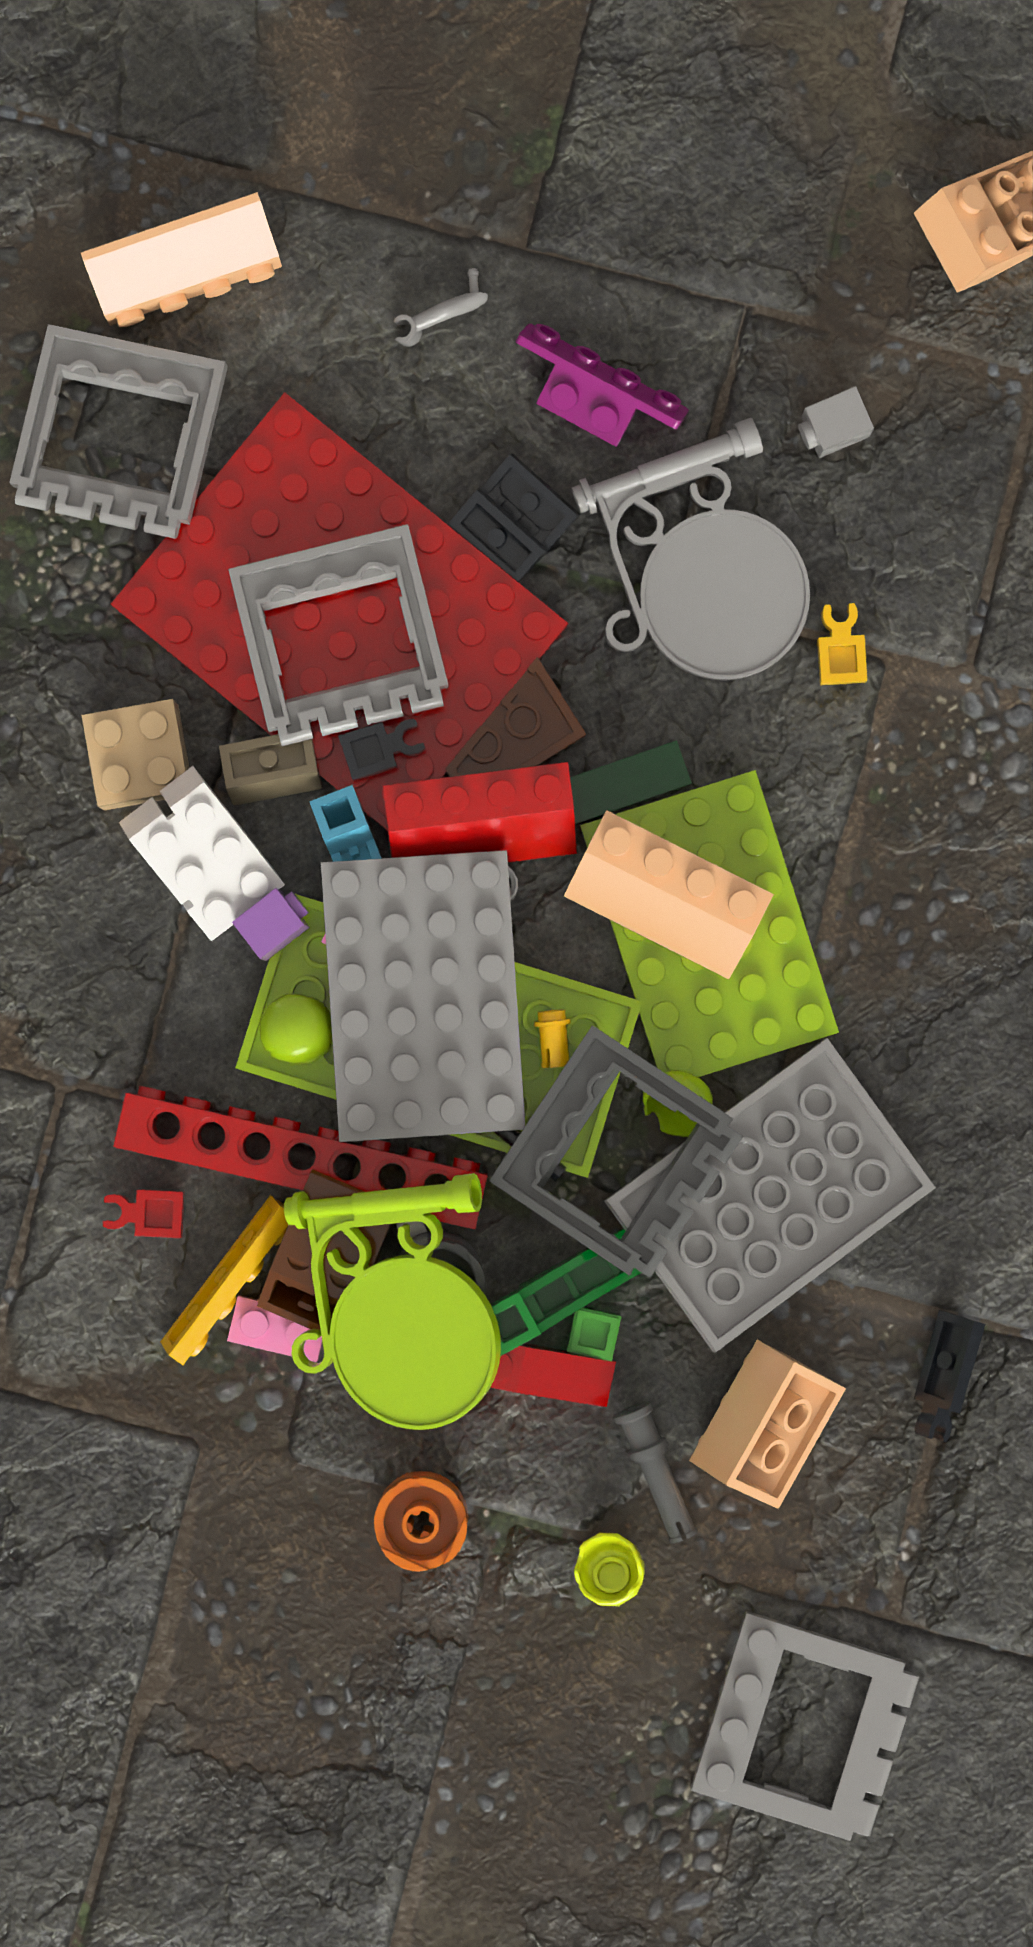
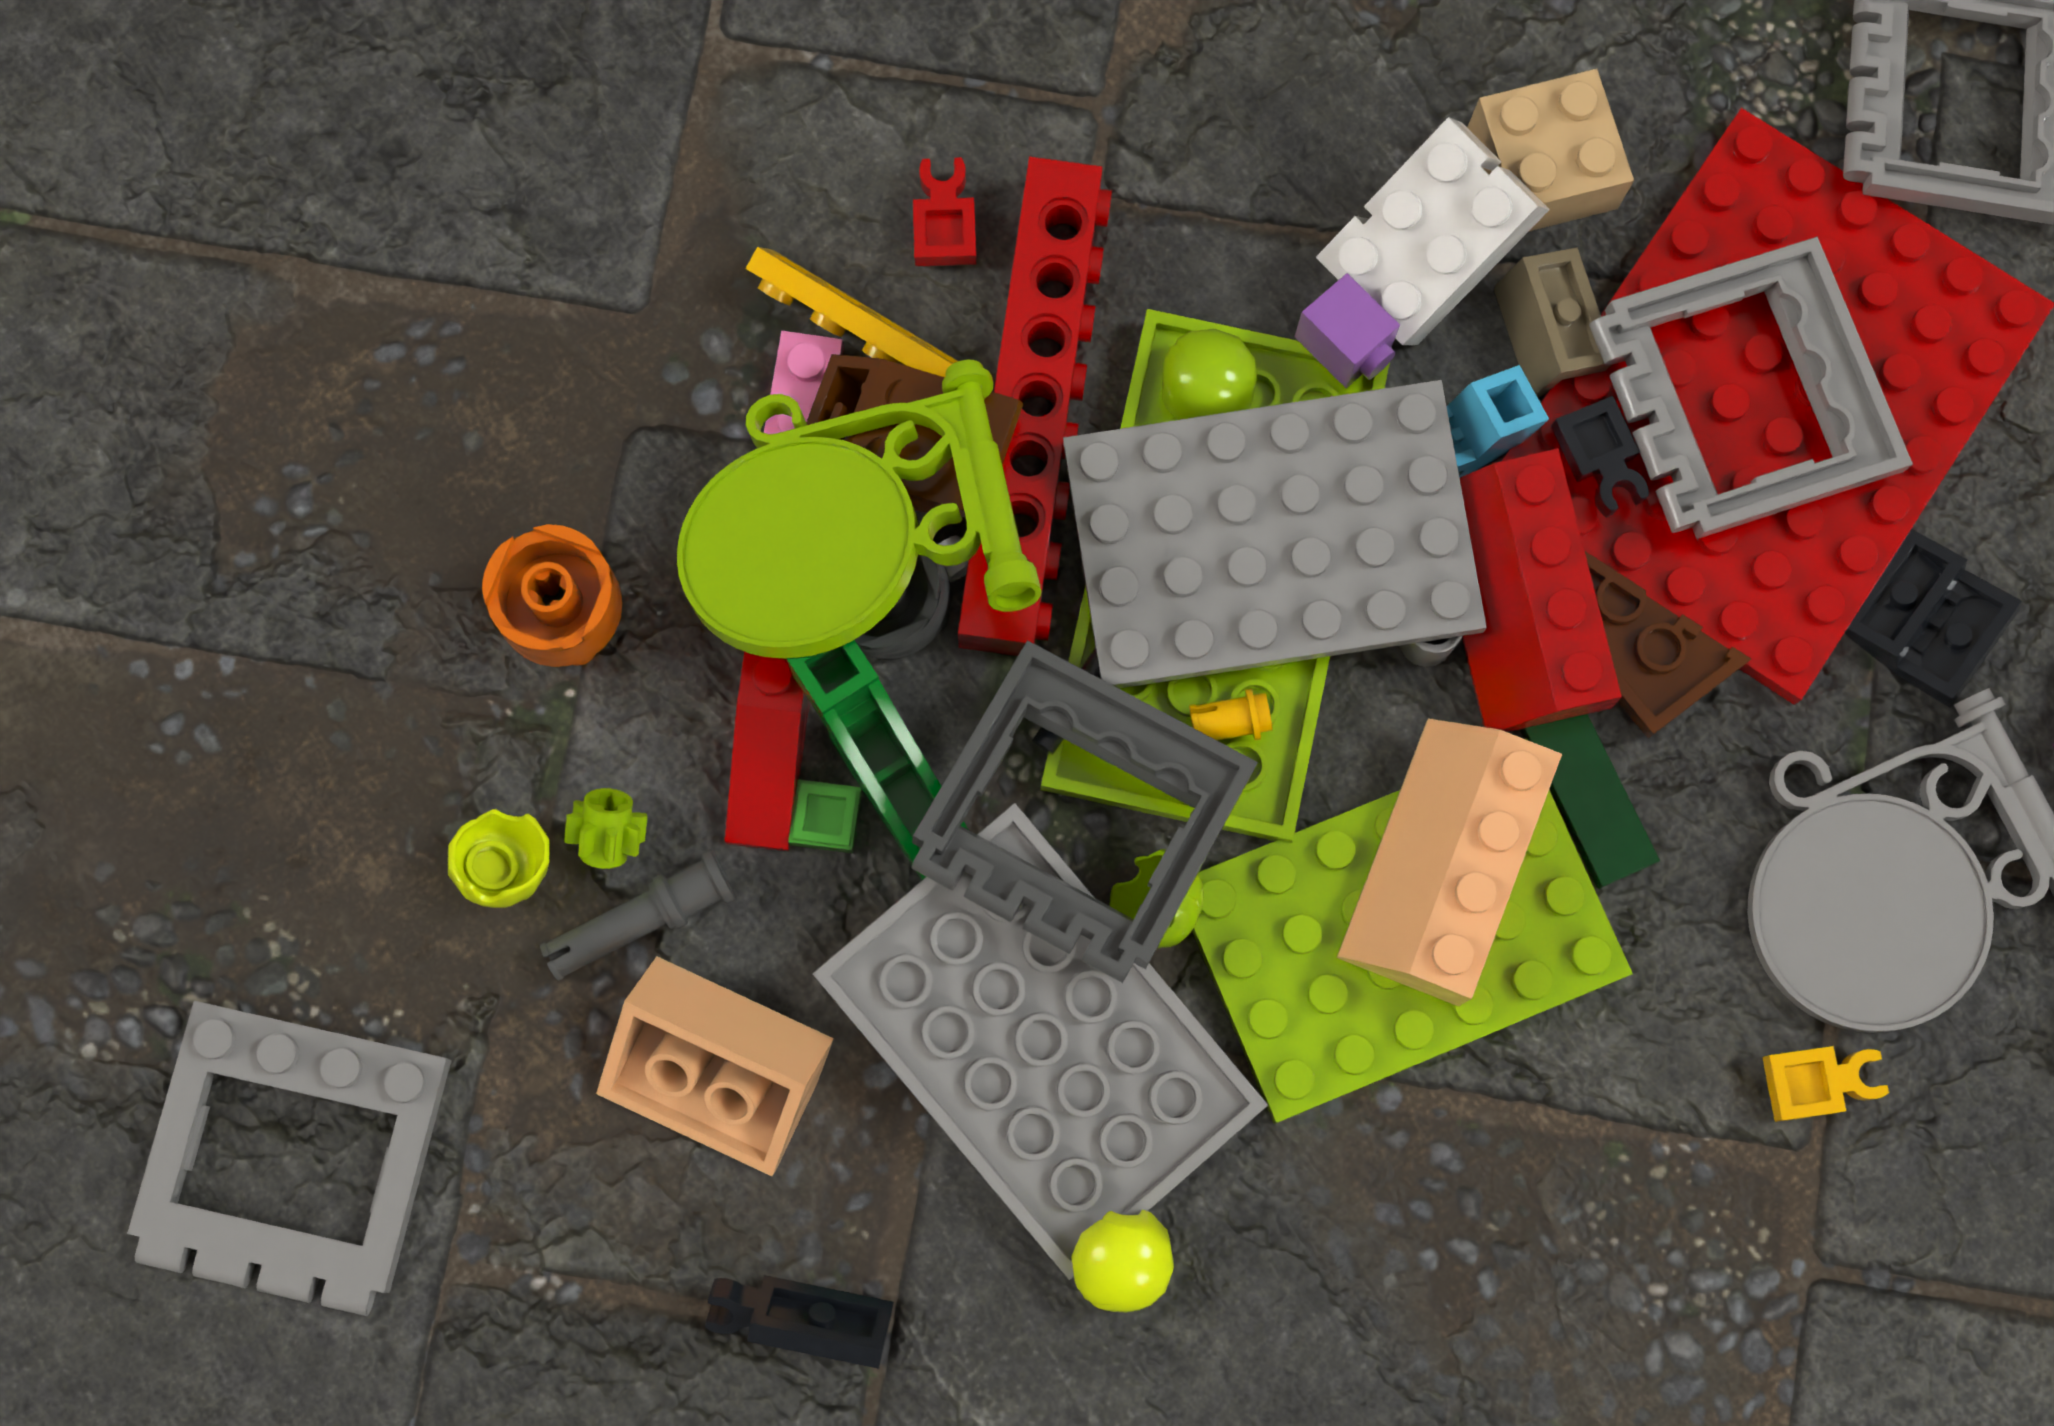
camera: 80 degrees right, 10 degrees down
(593, 1491) = (605, 828): none -> lime gear
(927, 1149) = (1123, 1262): none -> neon yellow hair

